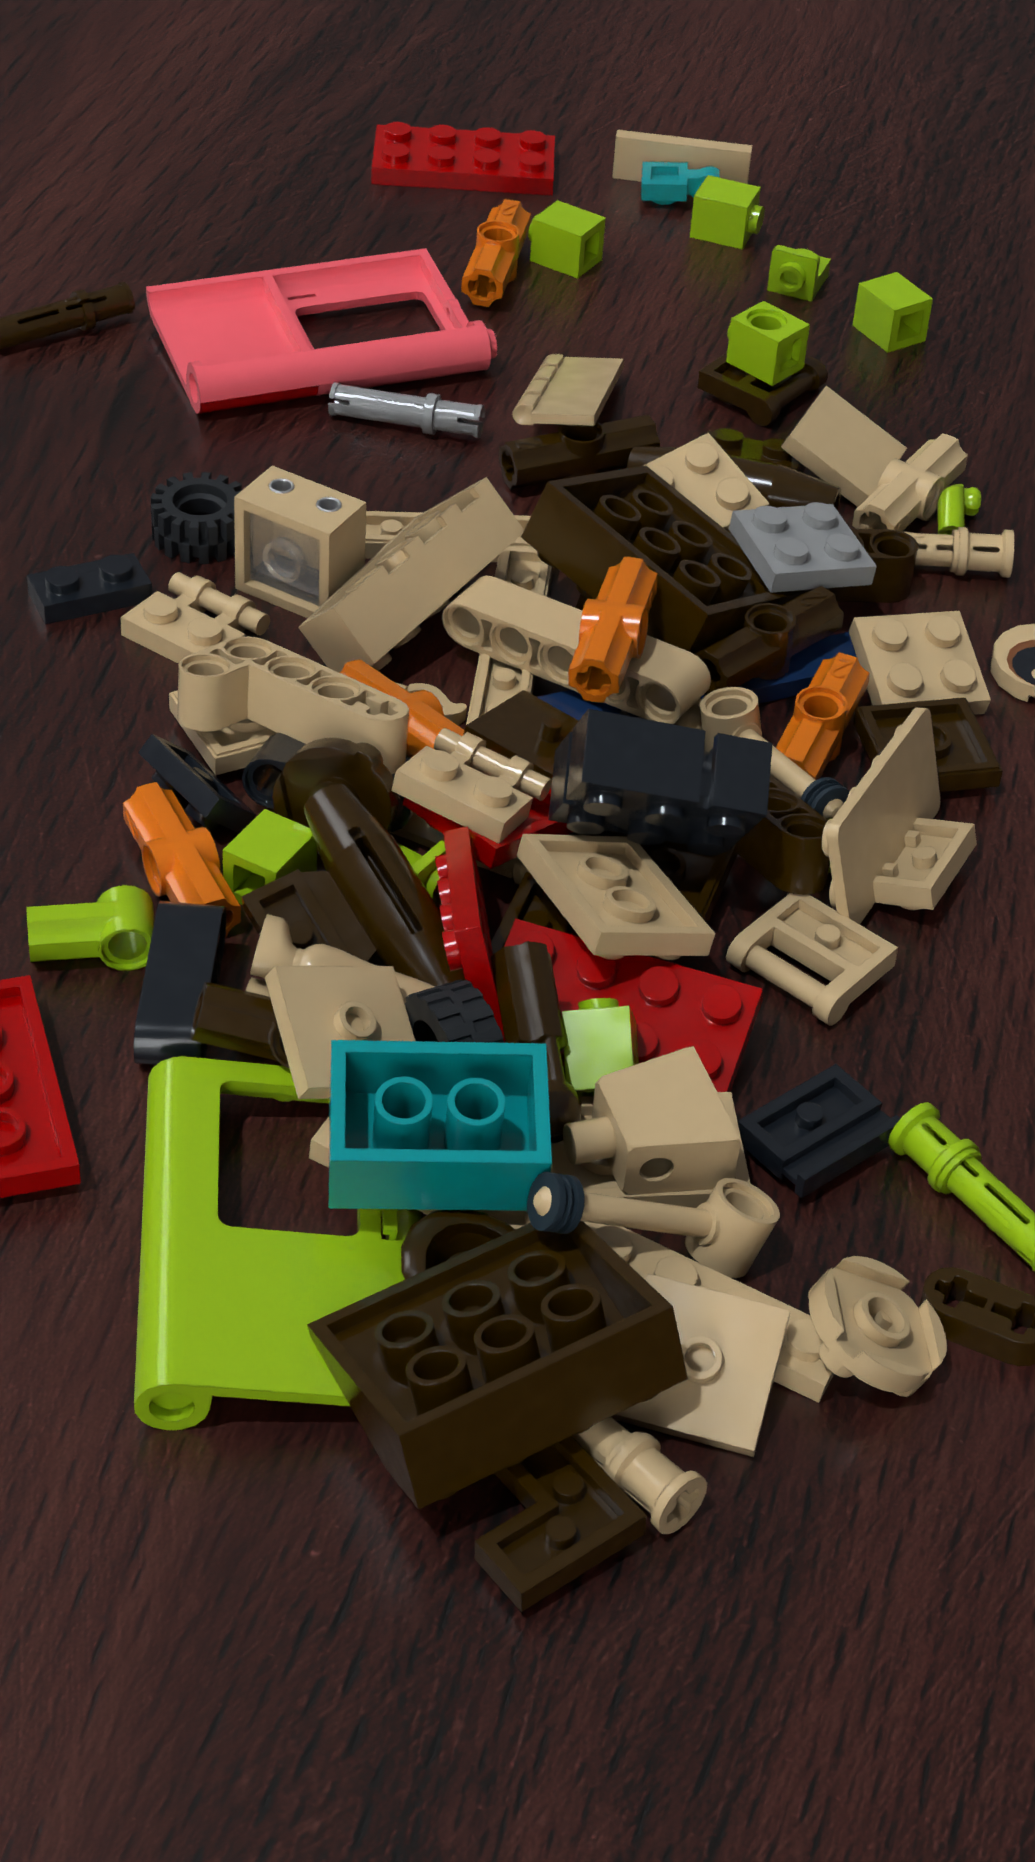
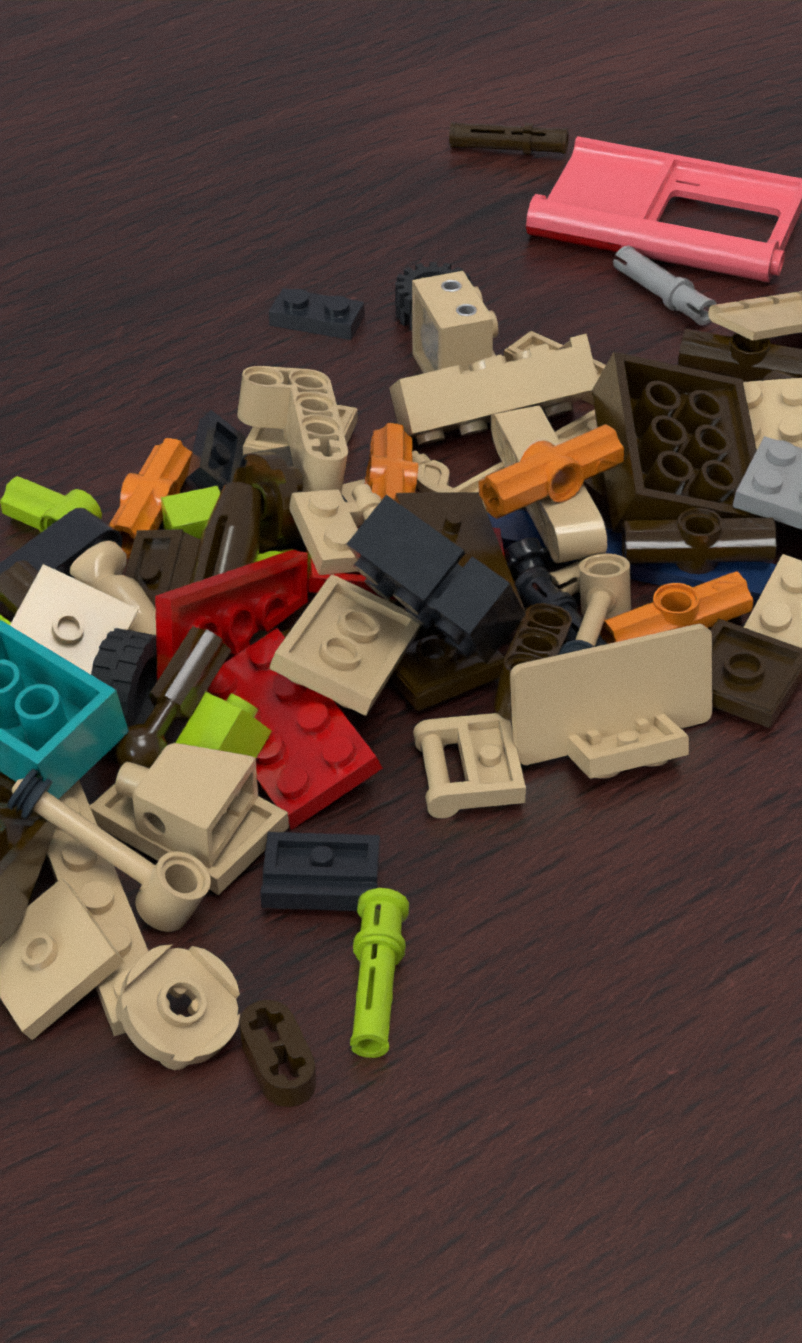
camera: 45 degrees right, 0 degrees up
(179, 624) = (342, 358): tan plate -> none

